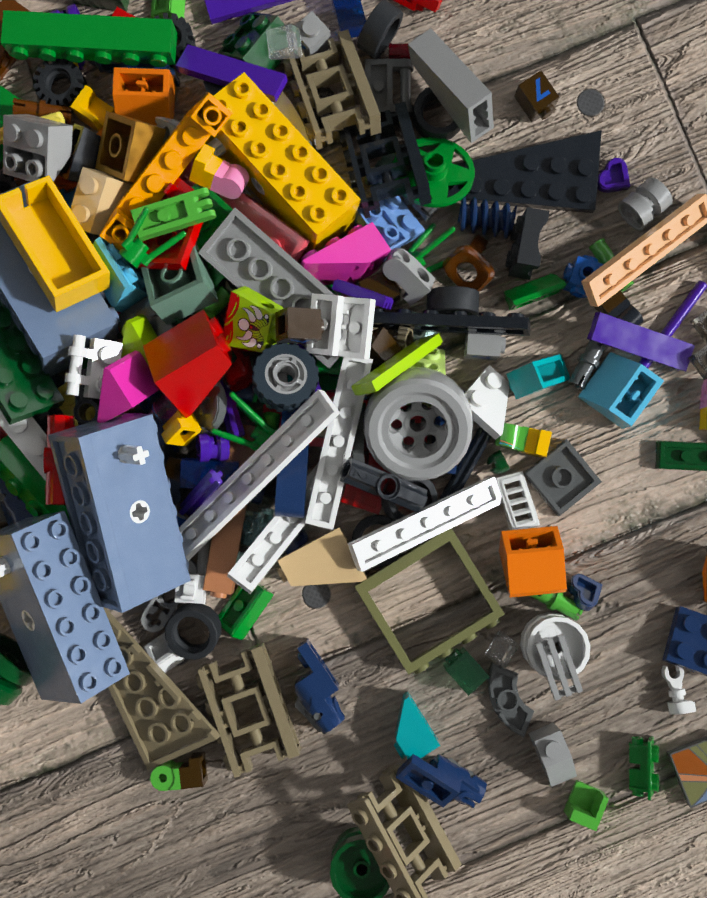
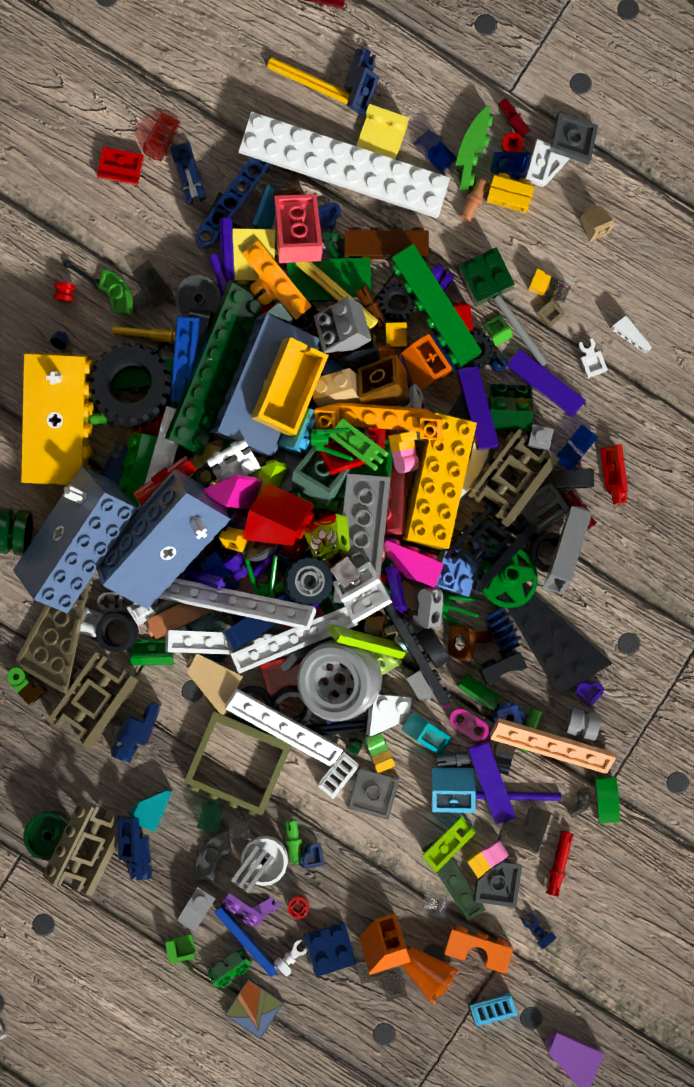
camera: 55 degrees right, 0 degrees up
(200, 31) = (495, 366): none -> dark blue hinge
(284, 42) = (519, 428): clear slope -> none
(370, 478) = (284, 674): black piece -> none
(533, 561) = (306, 810): orange slope -> none
(537, 97) = (604, 608): dark brown brick -> none
(559, 324) = (468, 724): none -> dark pink plate
(607, 697) = (253, 915): none -> medium lavender plate
(623, 640) = (298, 902): none -> red wheel
(626, 726) = (246, 940): none -> blue tile
(674, 436) = (447, 844): none -> lime plate

